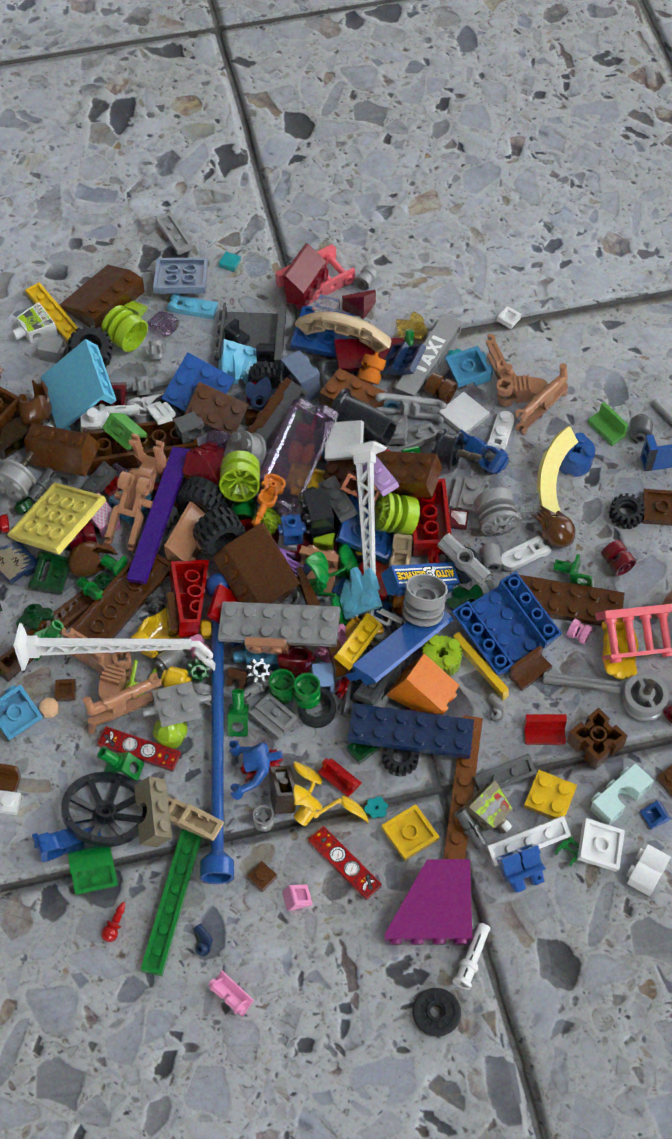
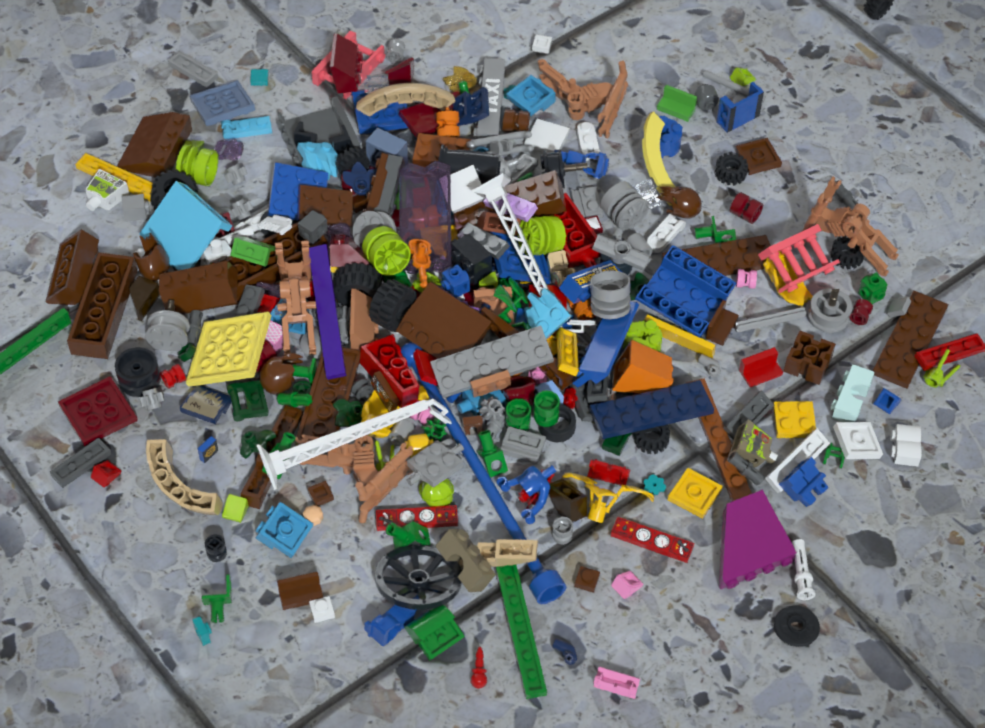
camera: 25 degrees left, 5 degrees down
(127, 623) = (346, 413): none -> dark green plate

